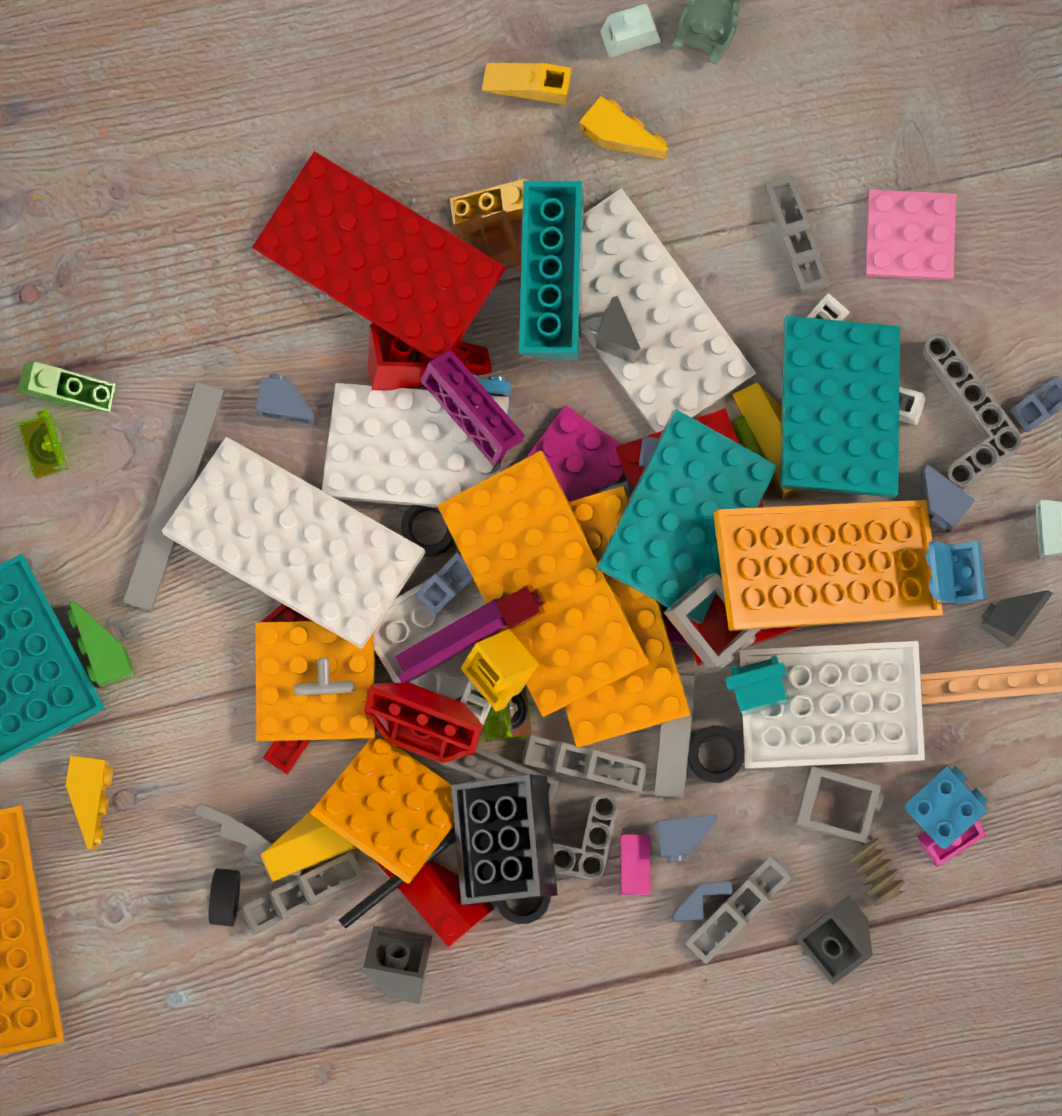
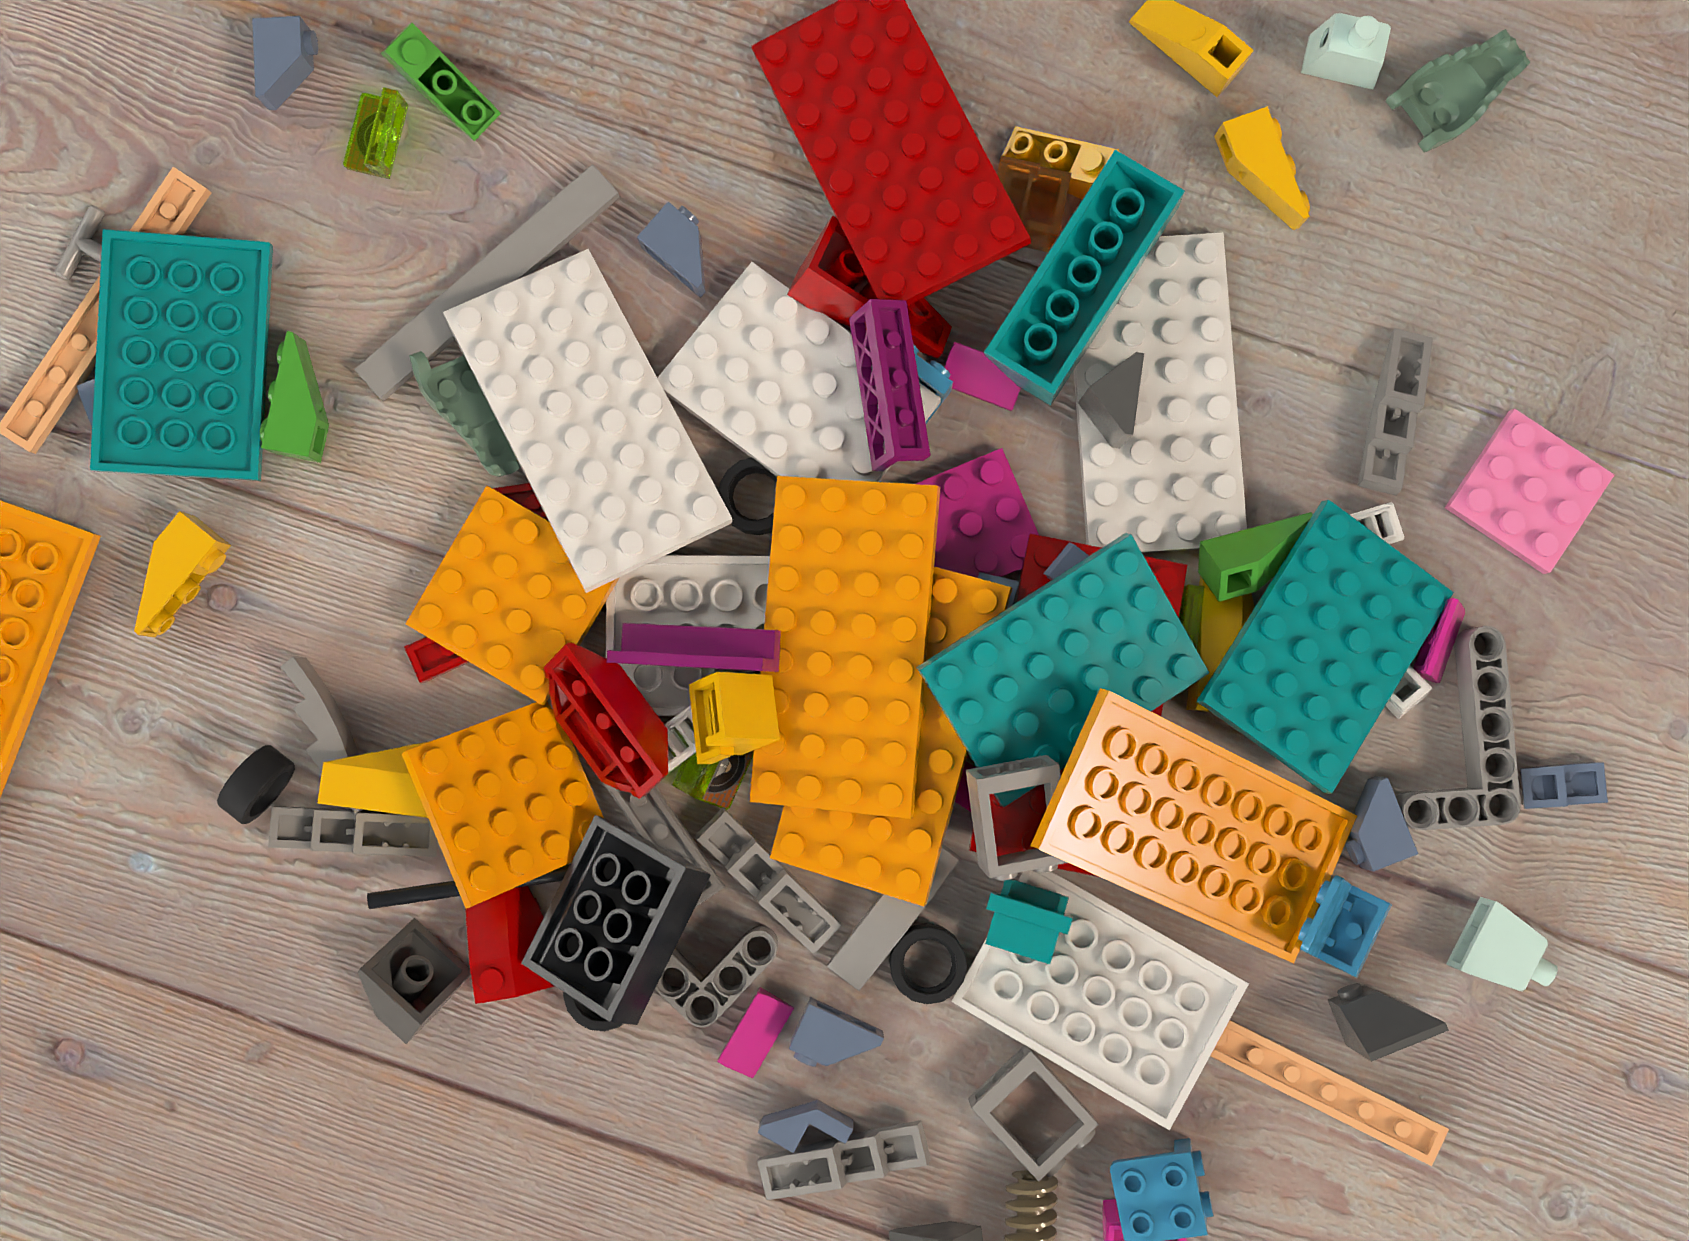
camera: 30 degrees right, 5 degrees up
(204, 579) = (460, 401): none -> sand green animal
(324, 685) = (518, 607): light grey piece -> none
(445, 584) = (731, 575): sand blue slope -> none
(521, 606) = (800, 659): dark red brick -> none
(524, 369) = (979, 377): none -> dark pink slope
(759, 381) = (1248, 558): none -> bright green slope
(912, 361) = (1439, 643): none -> dark pink slope

